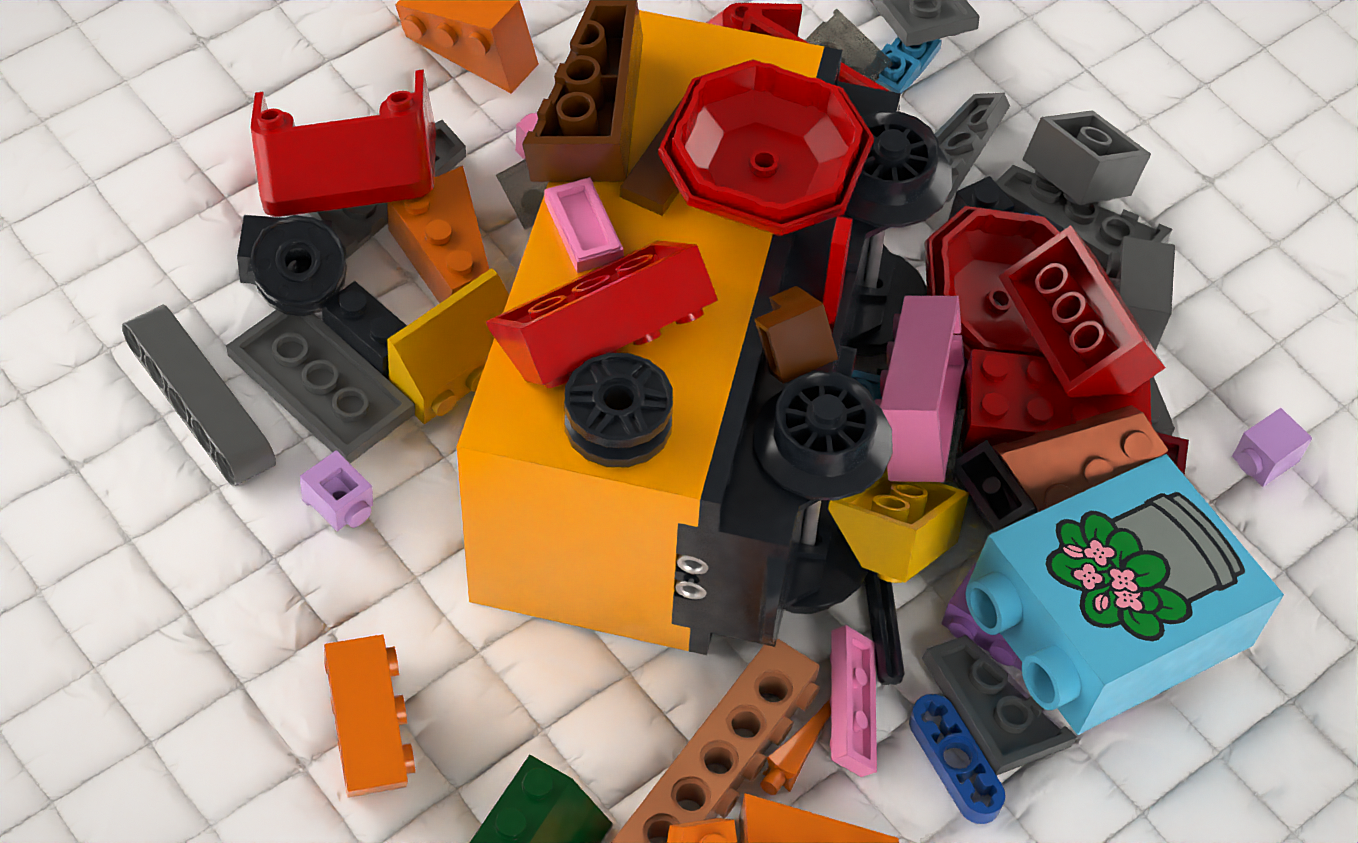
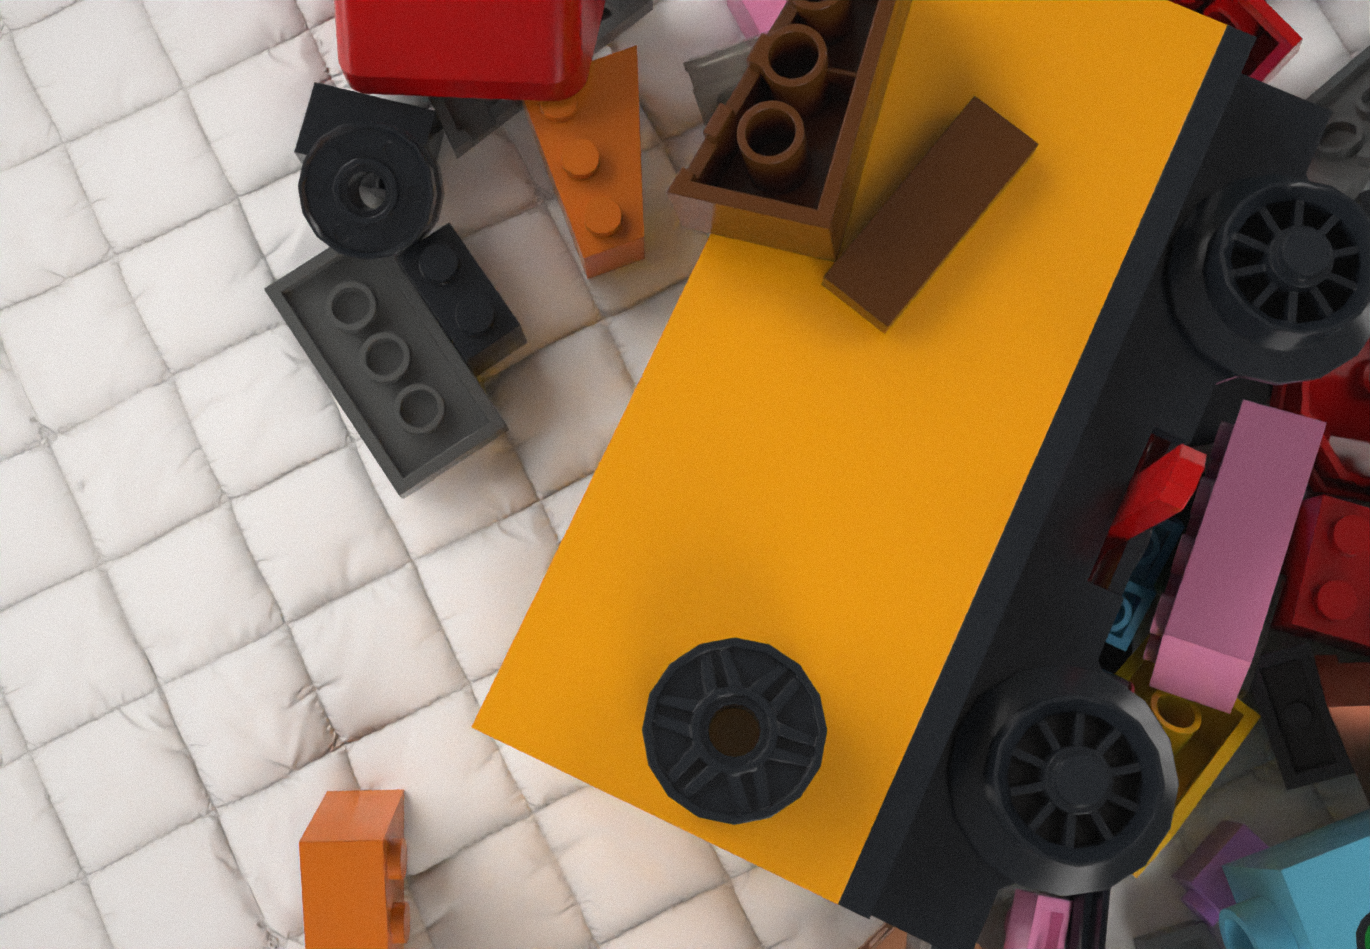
camera: 15 degrees right, 25 degrees up
(199, 395) = (216, 359): dark grey beam -> none
(337, 492) = (359, 539): lavender brick -> none
(447, 347) = (574, 350): yellow slope -> none
(583, 224) = (750, 335): bright pink tile -> none
(605, 311) = (747, 527): red slope -> none
(771, 119) = (1147, 213): red rock -> none
(795, 335) = (1062, 619): reddish brown piece -> none

